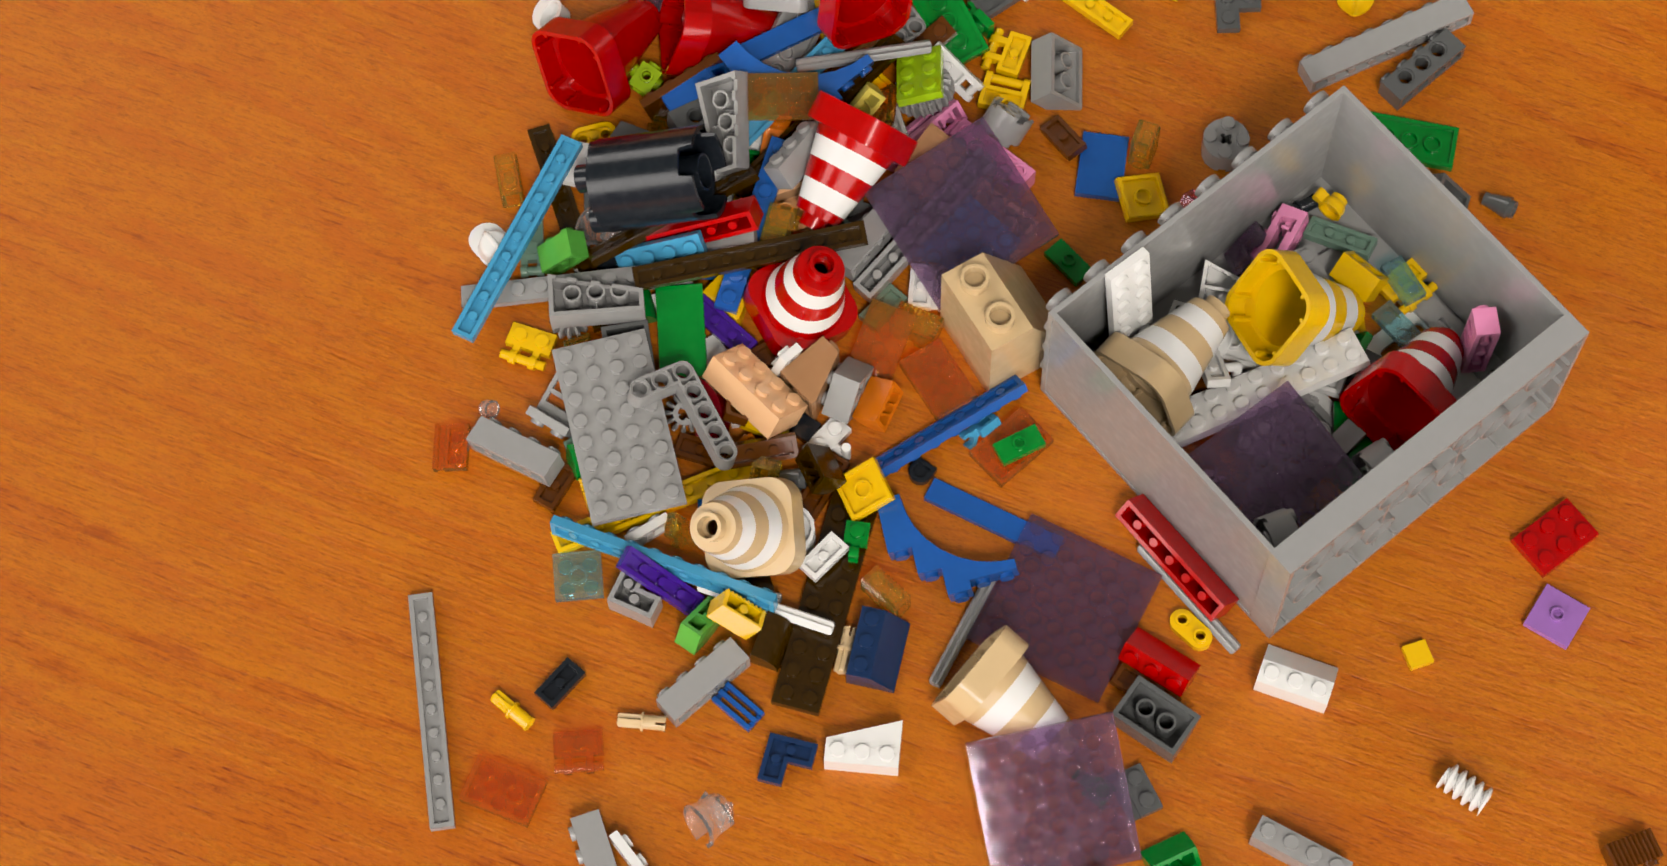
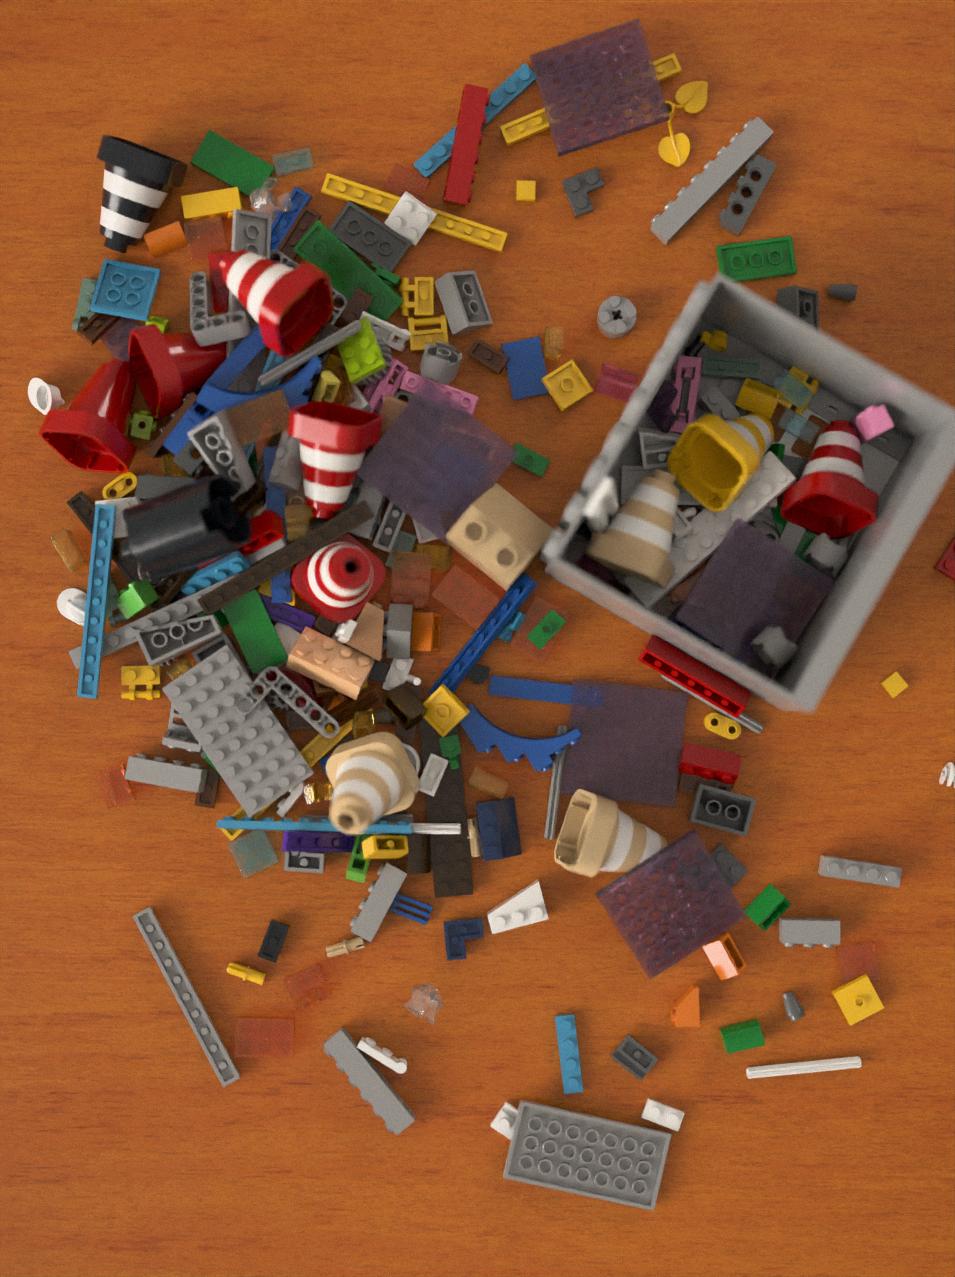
camera: 25 degrees left, 20 degrees up
(489, 408) = (133, 742): clear hinge -> none
(1296, 679) = (812, 735): white slope -> none

